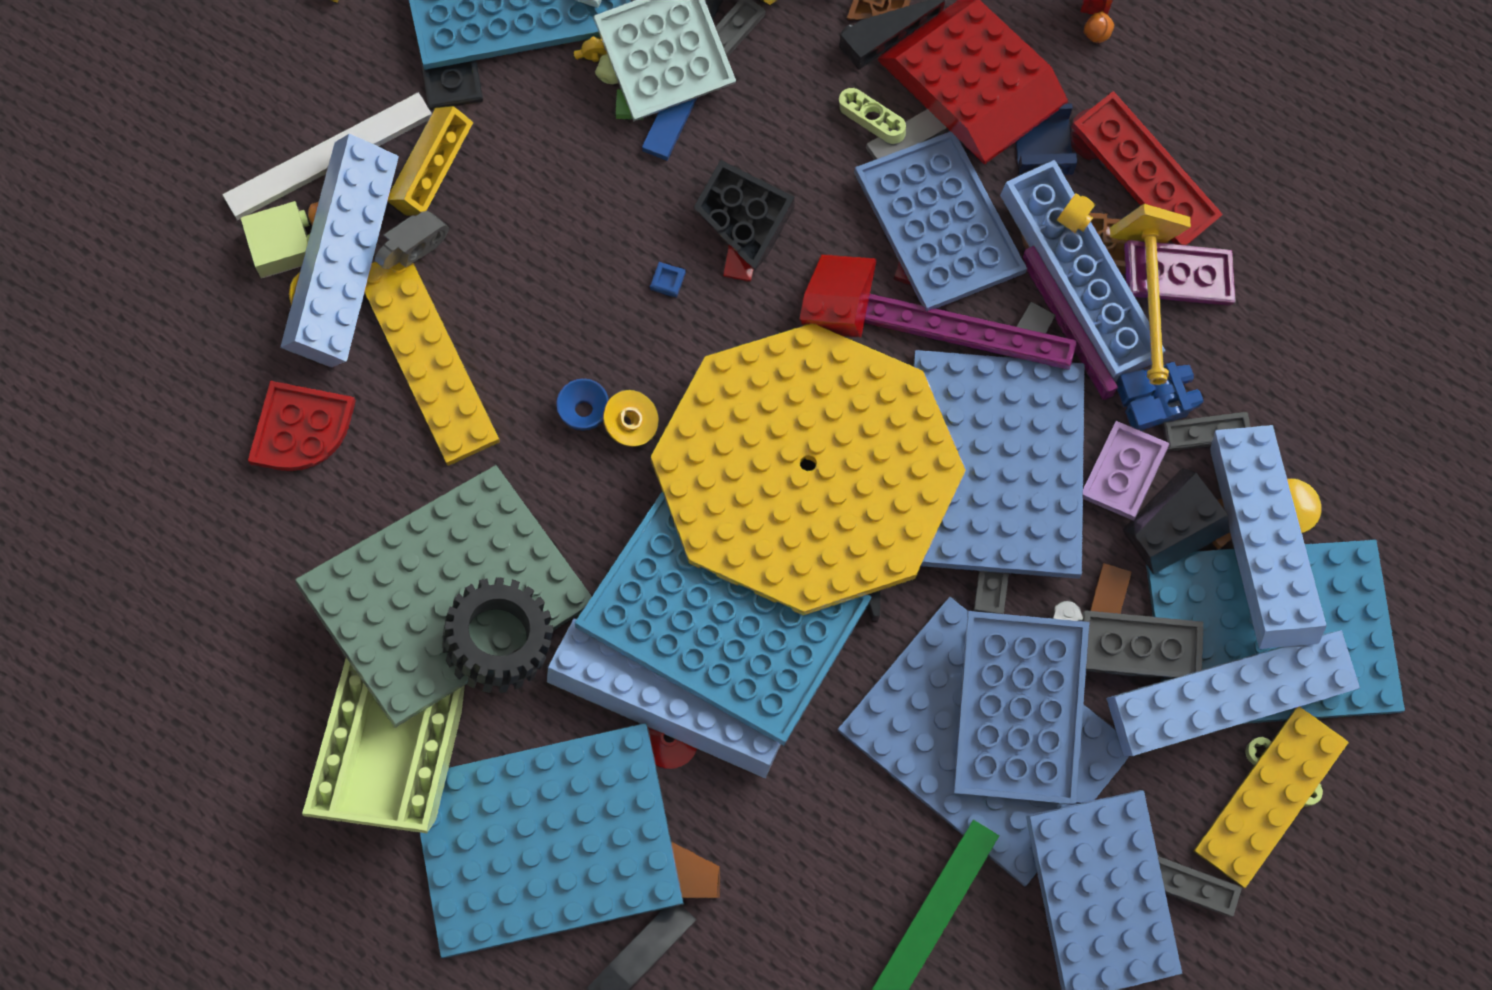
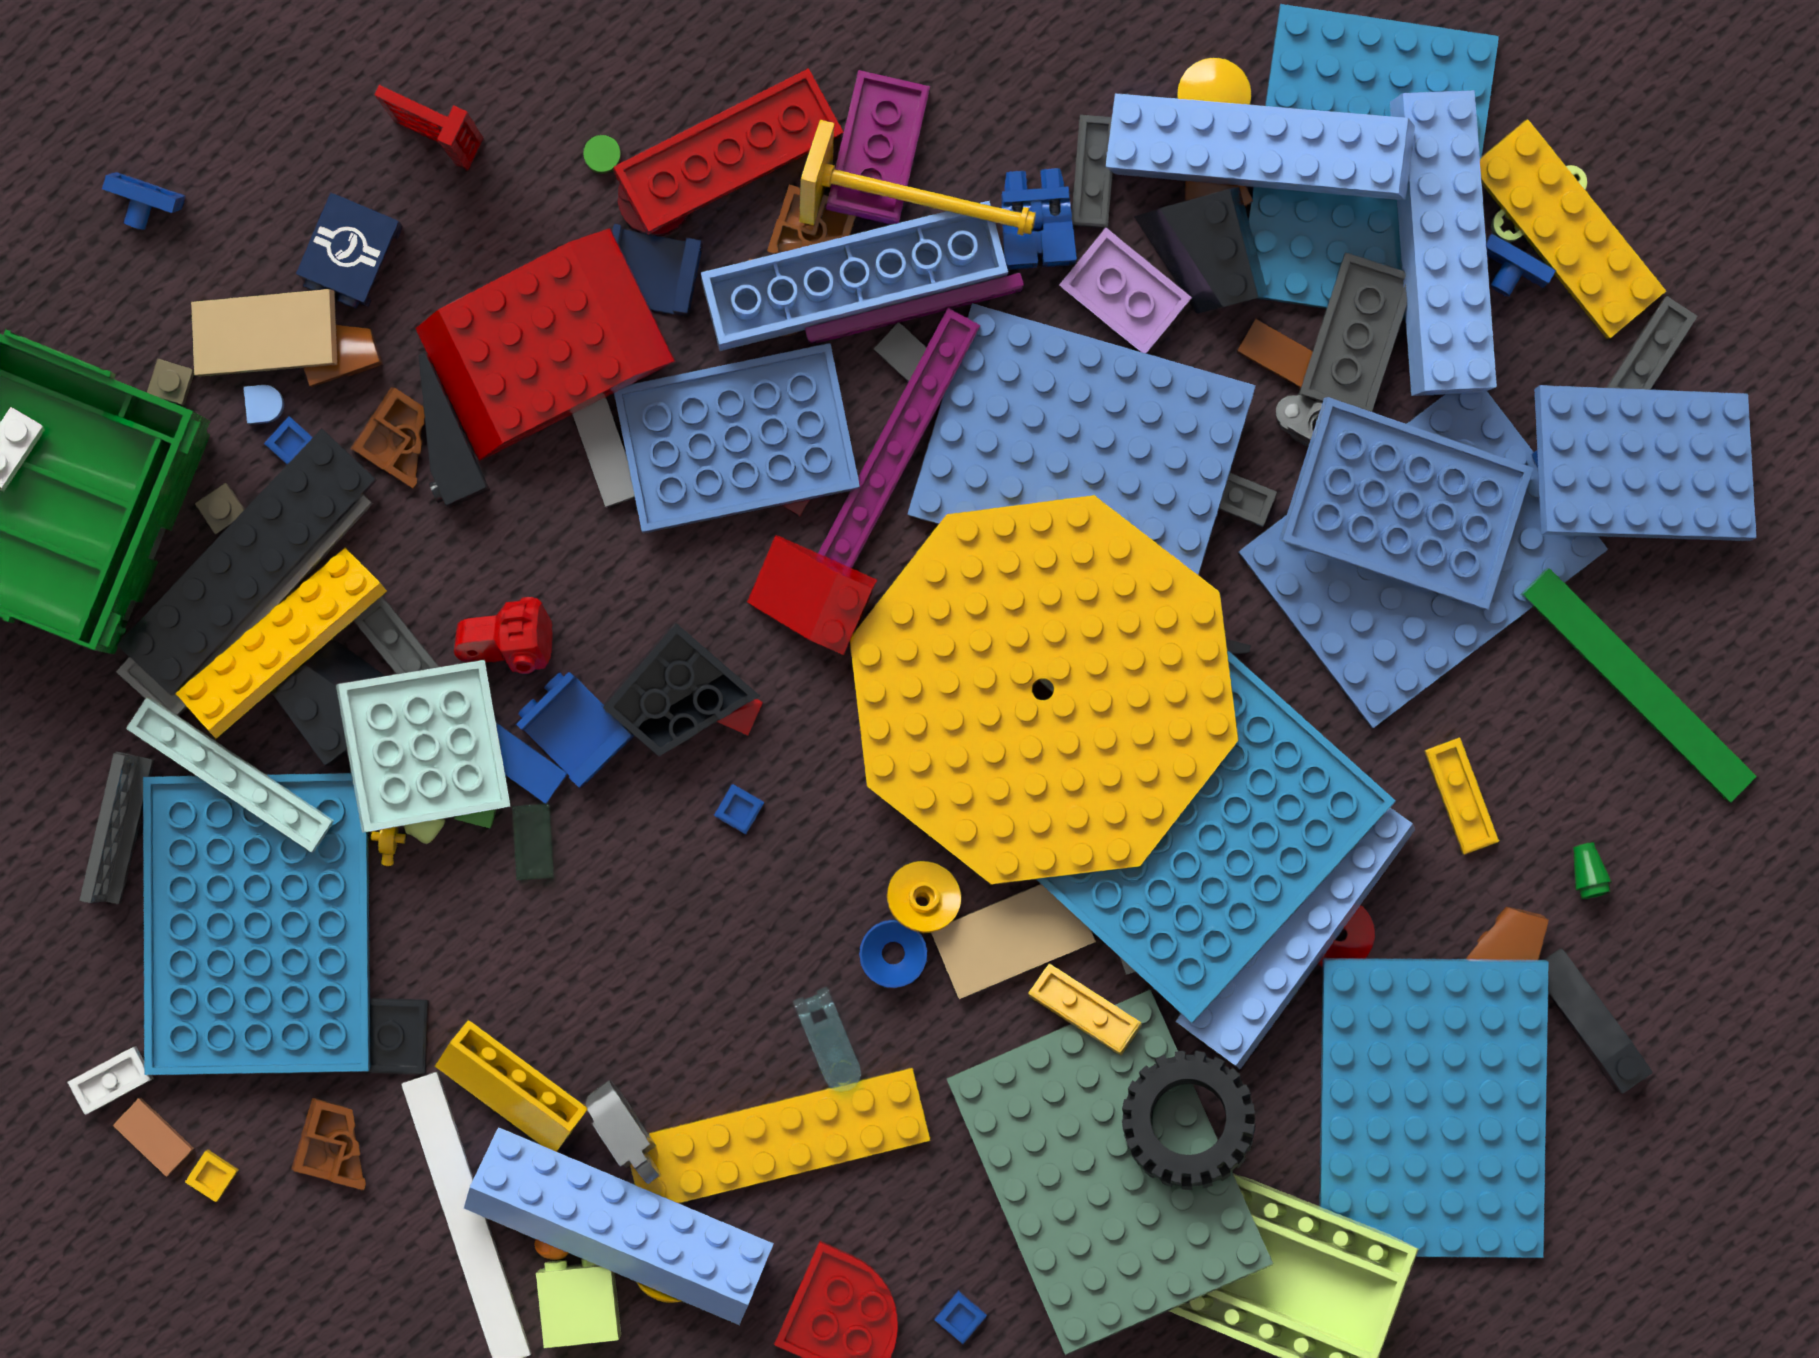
camera: 75 degrees left, 15 degrees up
(314, 514) = (960, 1317): none -> blue tile
(365, 55) = (330, 1145): none -> dark orange slope
(508, 375) = (829, 1041): none -> clear light blue plate
(569, 553) = (1085, 1009): none -> yellow tile
(609, 486) = (1008, 939): none -> tan tile
(612, 146) = (533, 841): none -> clear green tile
(700, 152) = (573, 728): none -> blue panel
(758, 99) = (517, 635): none -> red piece
(761, 928) = (1590, 872): none -> green cone
(800, 811) = (1461, 796): none -> yellow tile
(875, 126) = (552, 513): yellowish green beam -> none
(1076, 213) = (789, 266): yellow plate -> none
(1099, 27) = (503, 154): orange piece -> none
(1121, 88) = (602, 154): none -> bright green tile
(1230, 760) = (1514, 265): none -> blue tile

